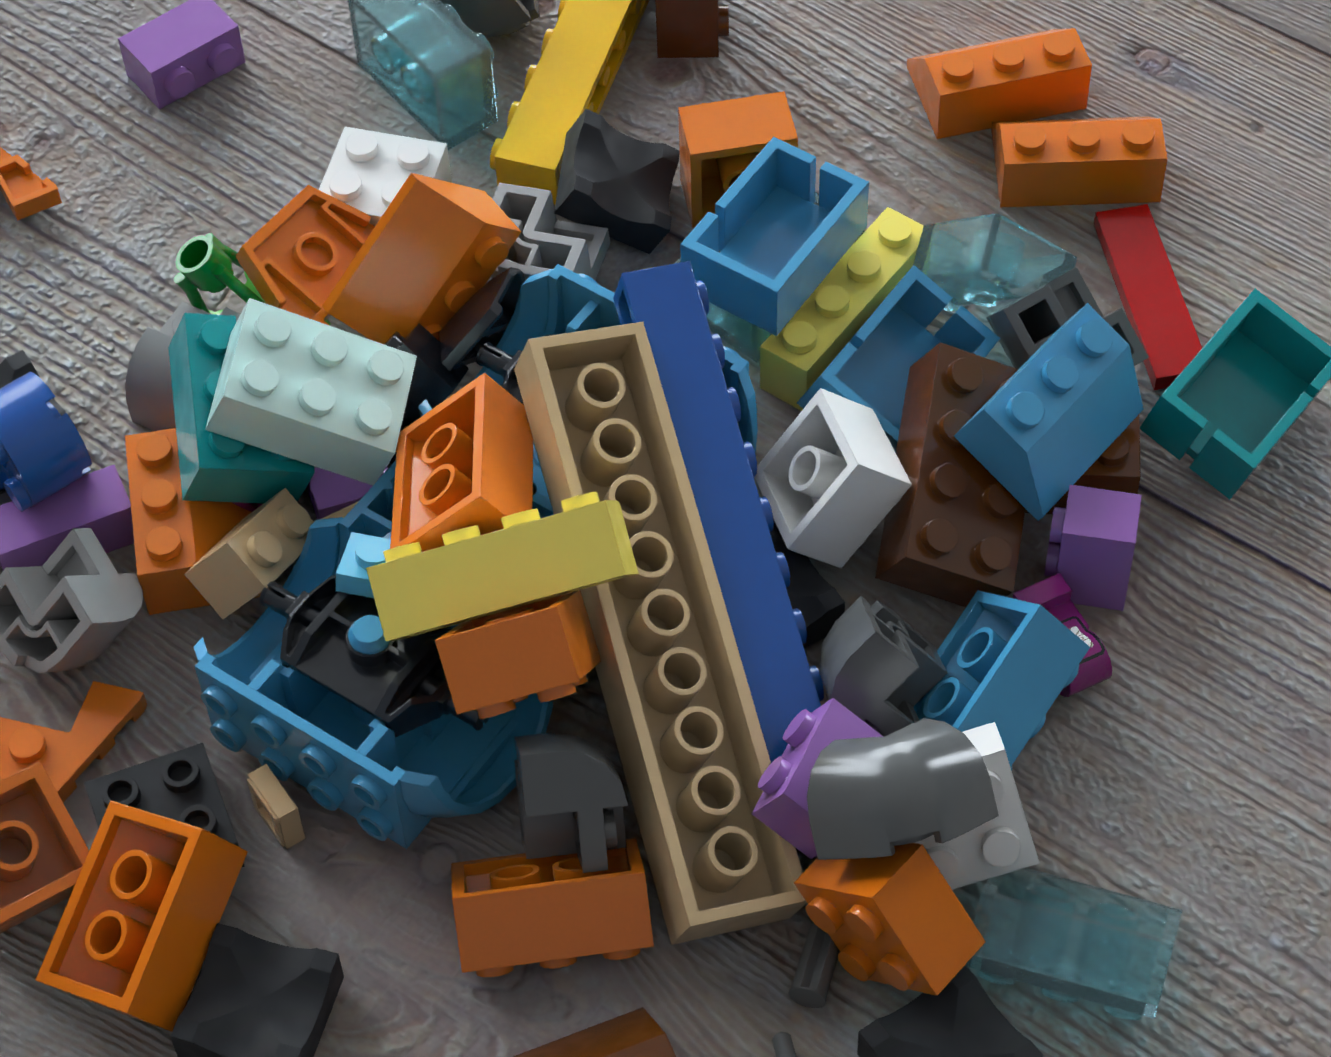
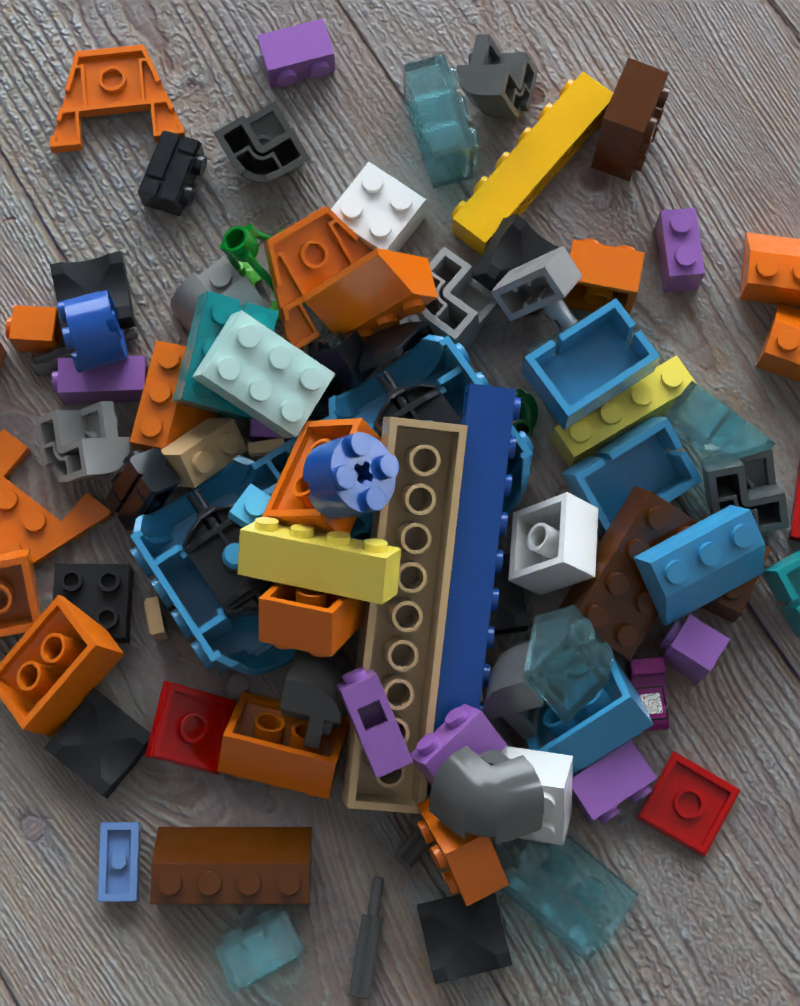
camera: 20 degrees right, 20 degrees up
(60, 243) = (172, 173): none -> black brick
(178, 611) = (141, 486): none -> black brick
(182, 161) = (262, 145): none -> dark grey brick
(393, 930) = (189, 727): none -> red tile
(504, 425) = (350, 476): none -> blue brick
(660, 172) = (540, 285): none -> light grey brick
(679, 767) = (373, 722): none -> medium lavender brick
(828, 100) = (679, 250): none -> medium lavender brick
(926, 602) = (567, 660): none -> clear light blue slope
(1069, 768) = (612, 781): none -> medium lavender brick
(1191, 765) = (688, 804): none -> red tile

